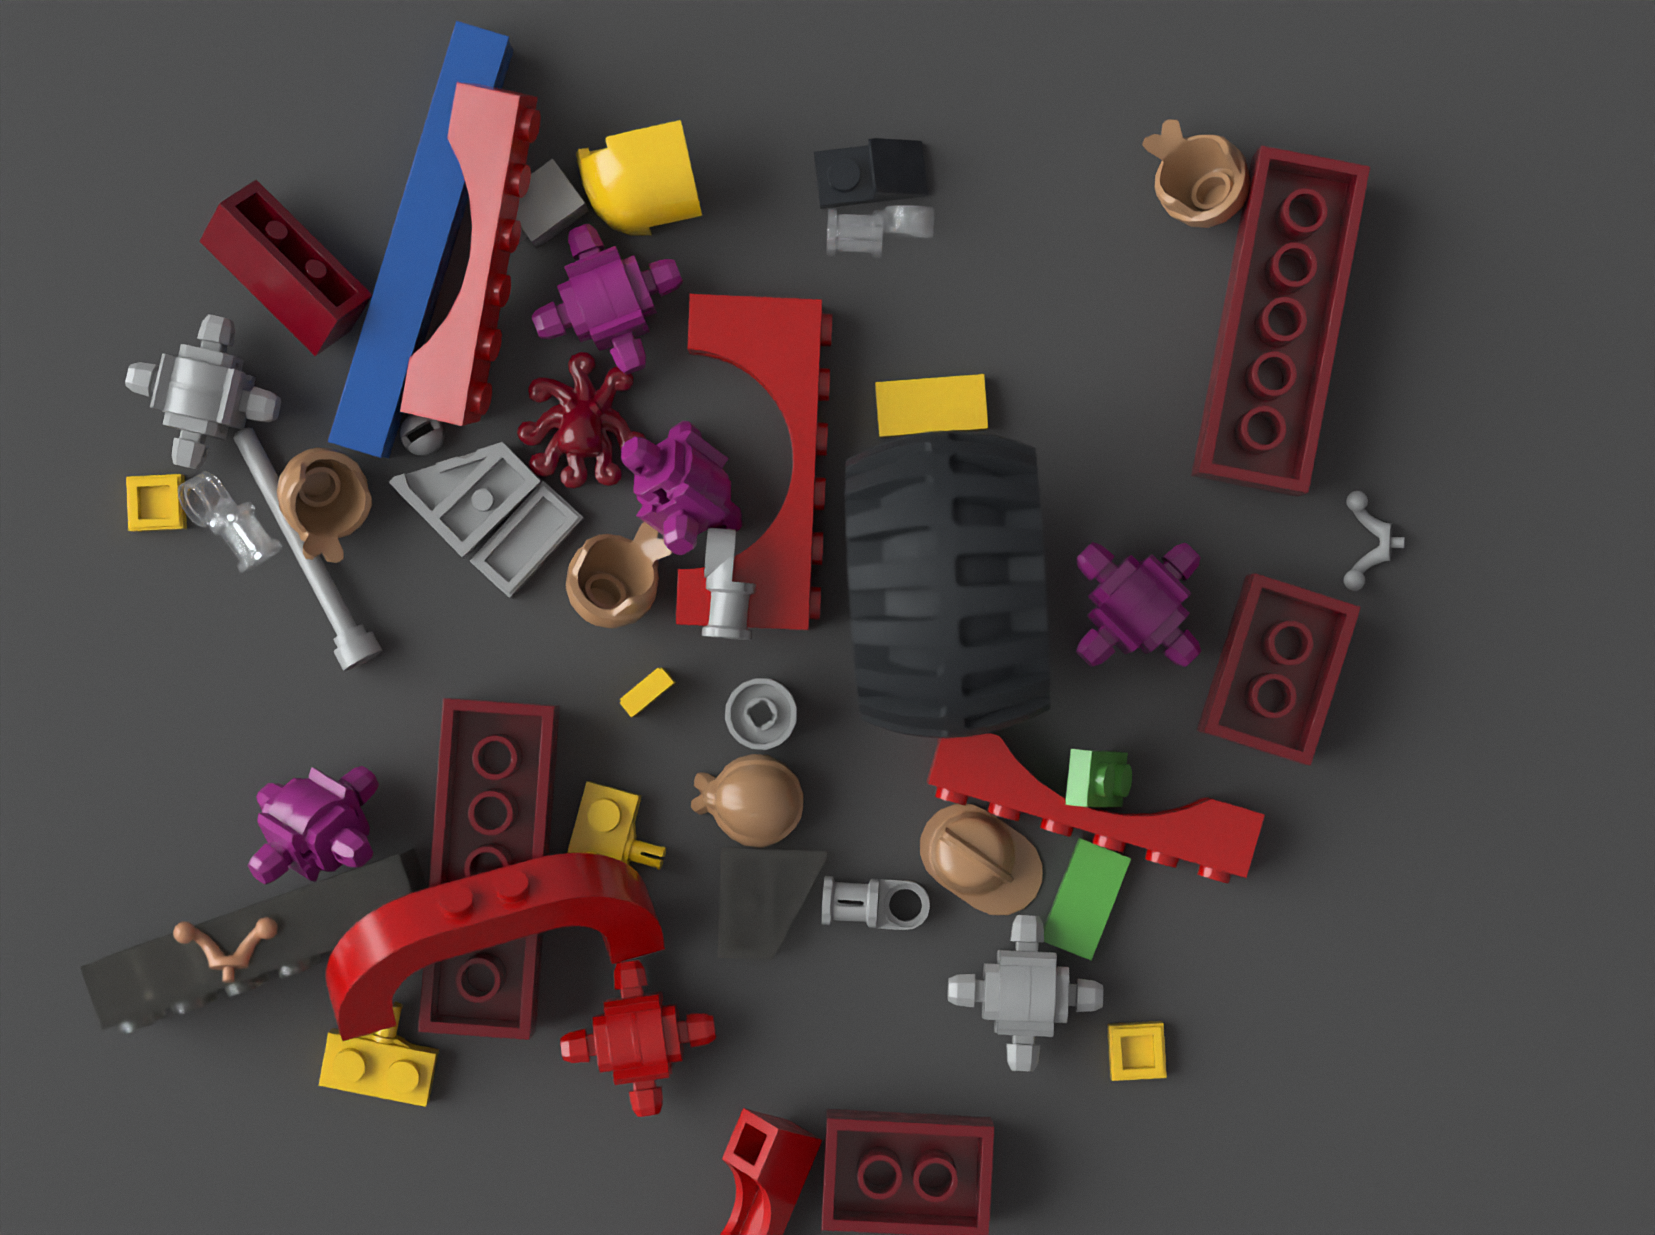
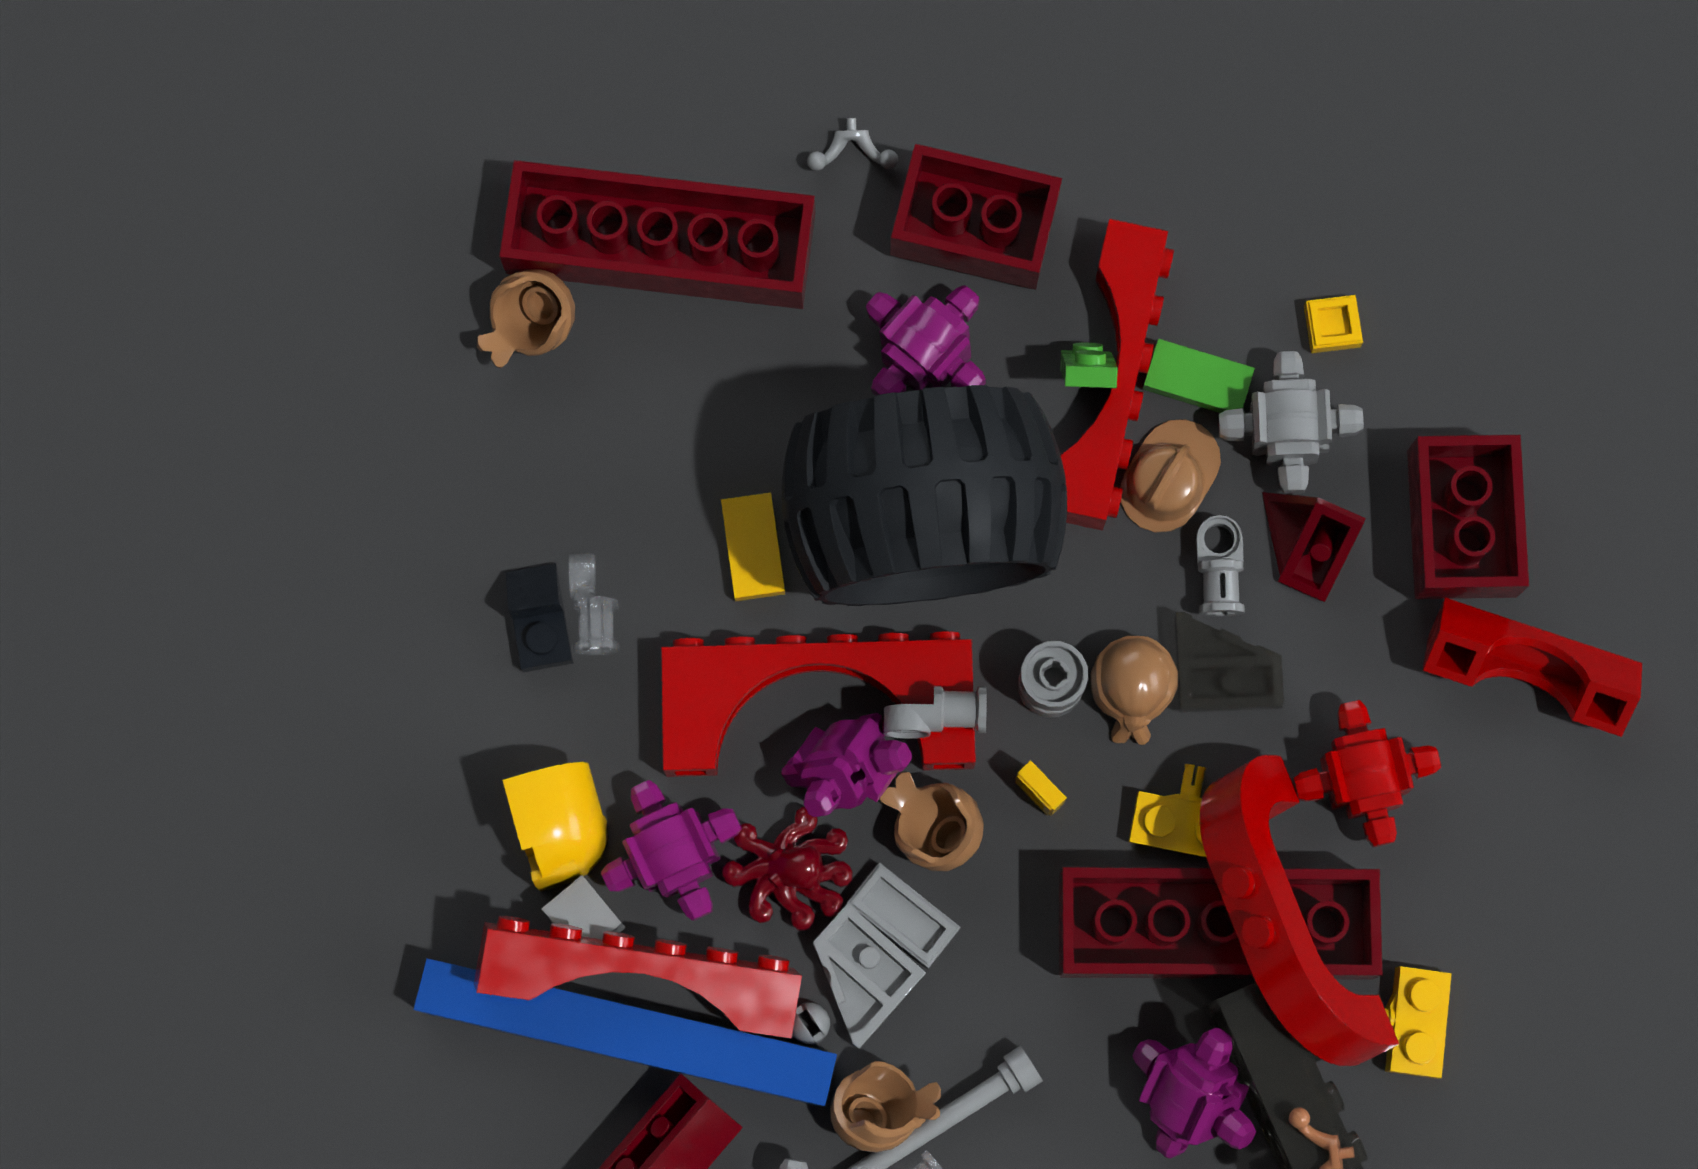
camera: 90 degrees left, 10 degrees down
(894, 1001) = (1310, 540): none -> dark red slope

